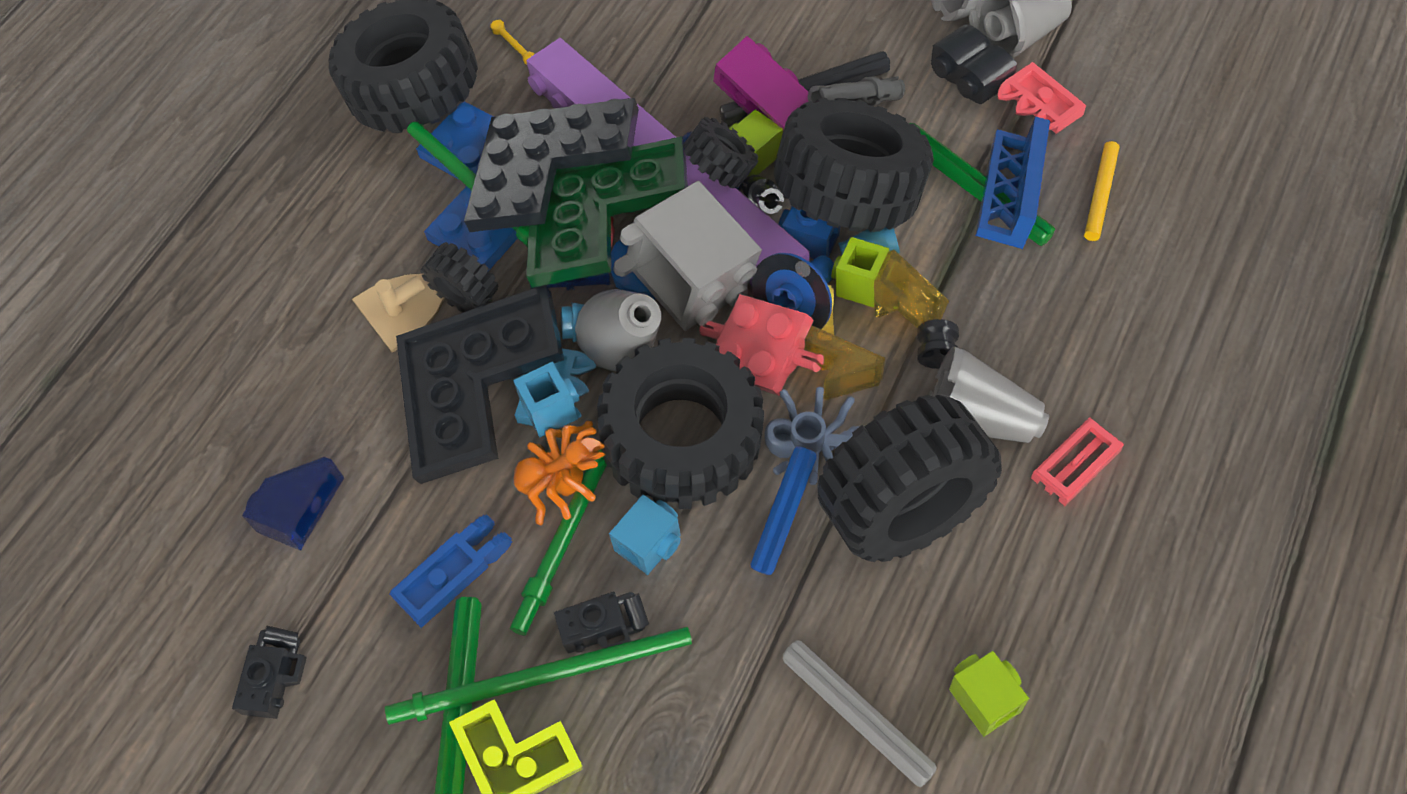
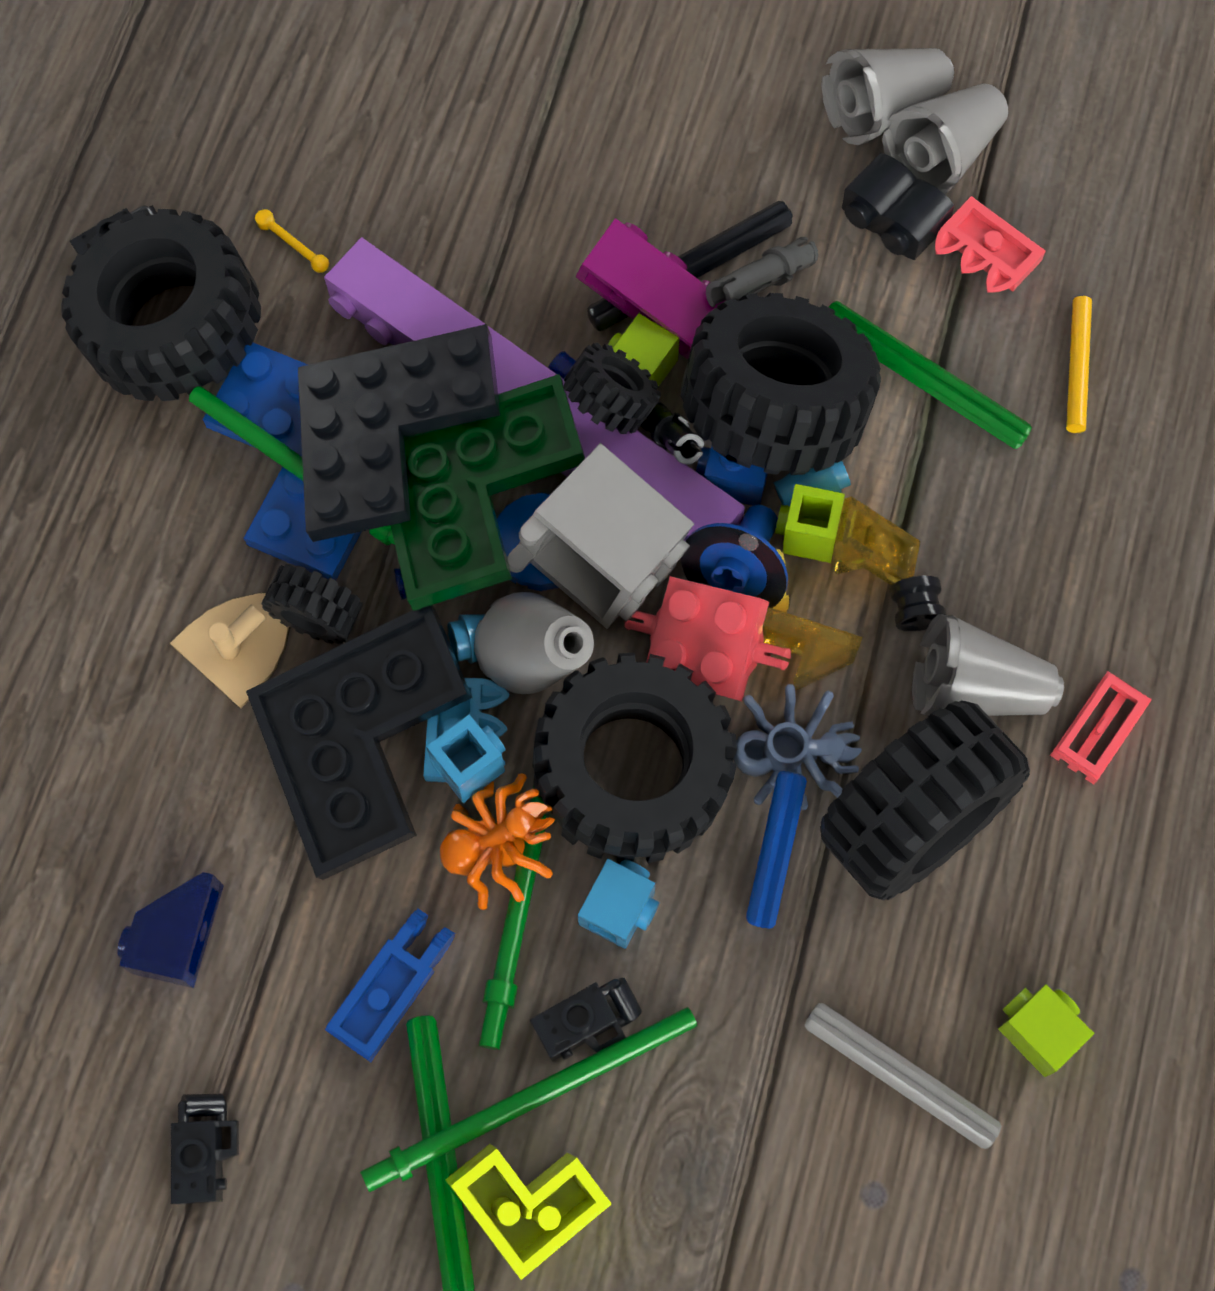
camera: 15 degrees left, 10 degrees up
(1021, 190) = (993, 372): blue fence -> none

